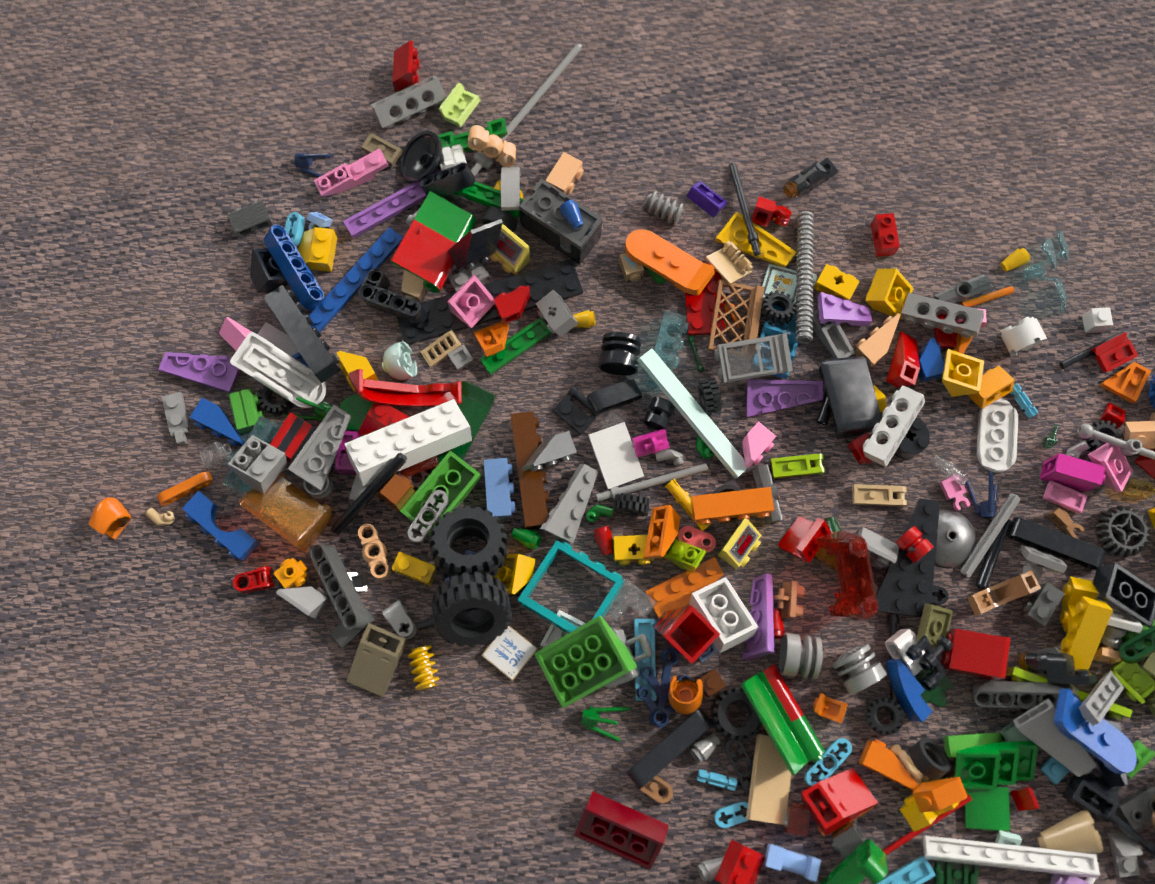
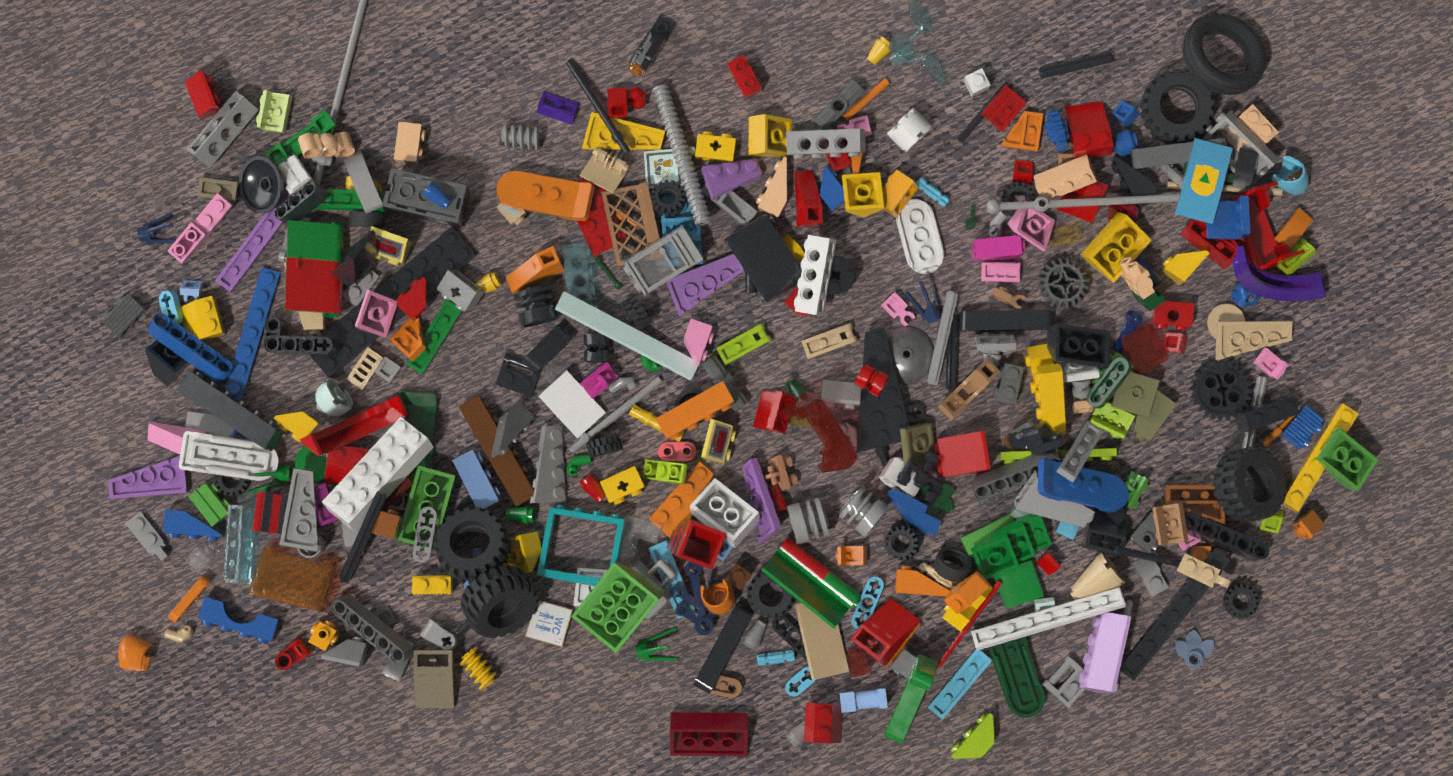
camera: 15 degrees left, 10 degrees up
(258, 464) = (250, 551): light grey slope -> none
(370, 543) = (382, 578): light nougat piece -> none
(639, 322) = (535, 269): none -> orange slope
(662, 531) = (641, 460): orange slope -> none
(949, 469) = (884, 291): clear pin -> none

